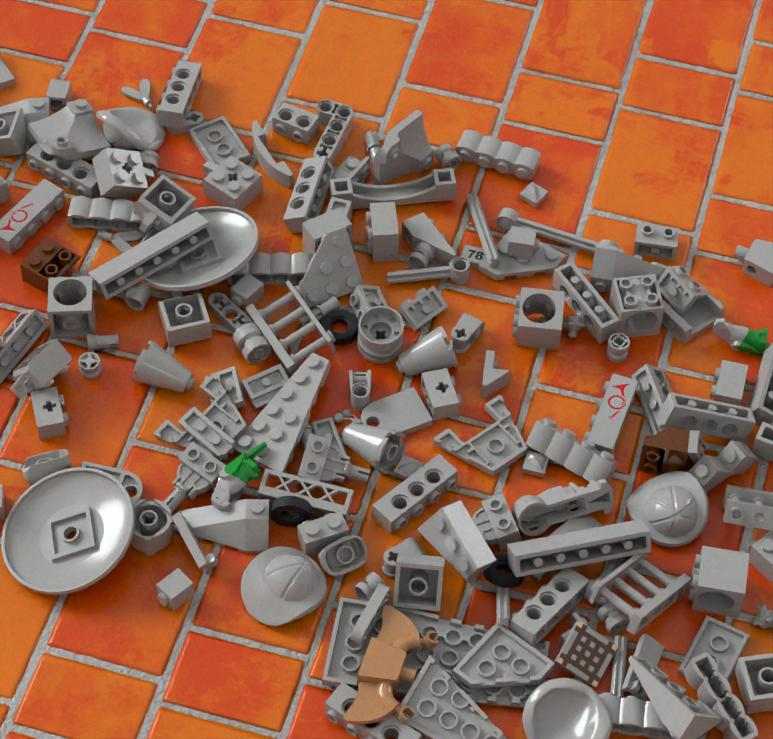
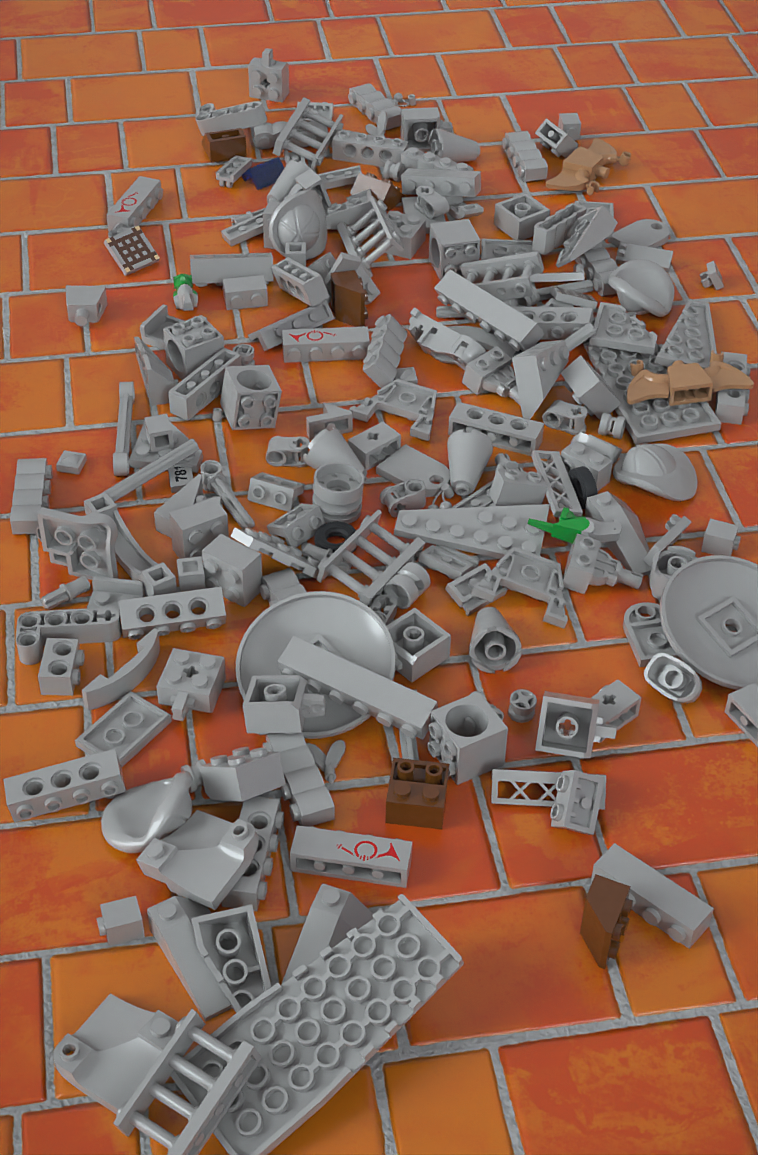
camera: 115 degrees left, 10 degrees down
(142, 96) = (71, 841): light grey piece -> none
(207, 433) = (544, 571): light grey hinge -> none
(371, 614) = (650, 412): light grey beam -> none
(656, 241) = (95, 367): light grey brick -> none
(671, 507) = (397, 291): light grey piece -> none
(679, 288) = (152, 330): light grey bracket -> none

